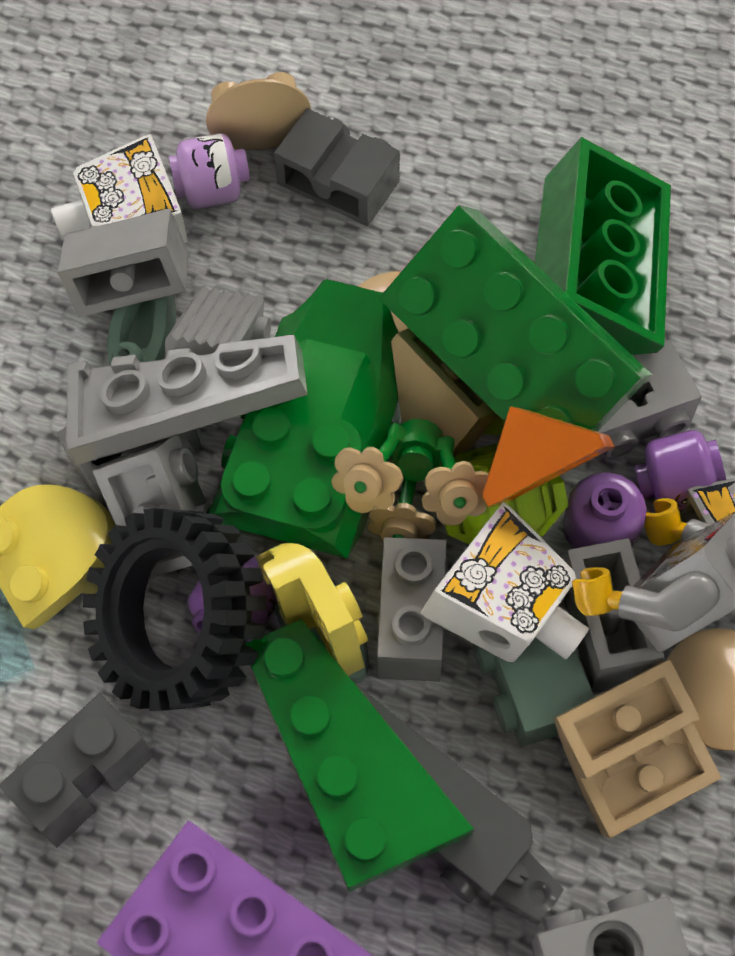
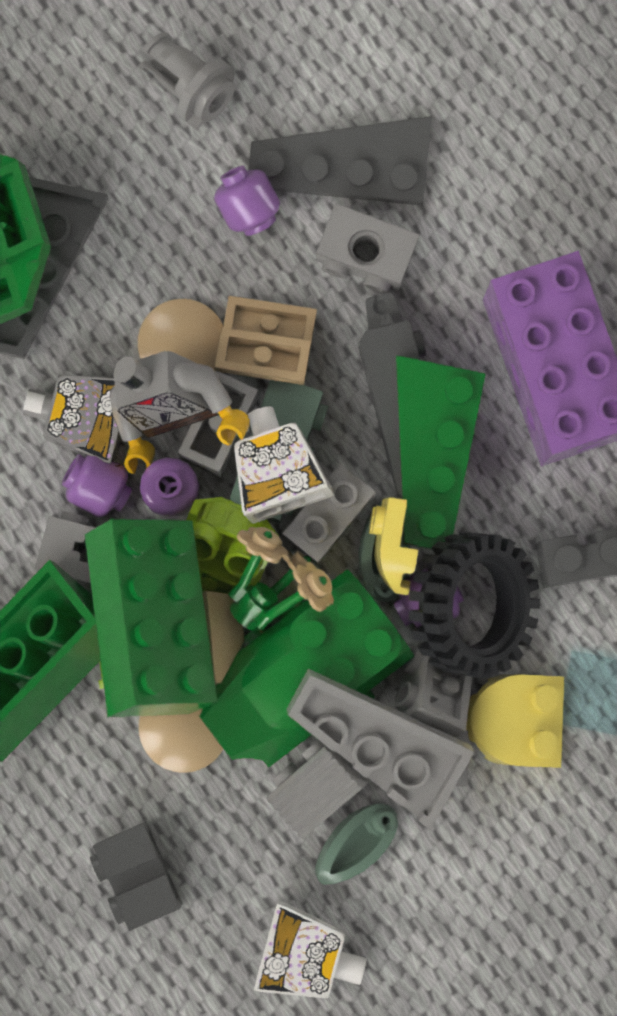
camera: 145 degrees left, 20 degrees up
(123, 263) = (341, 891): light grey brick -> none
(208, 171) = (230, 936): lavender head -> none
(256, 111) = (150, 946): tan dish -> none
(537, 451) = (200, 520): orange slope -> none

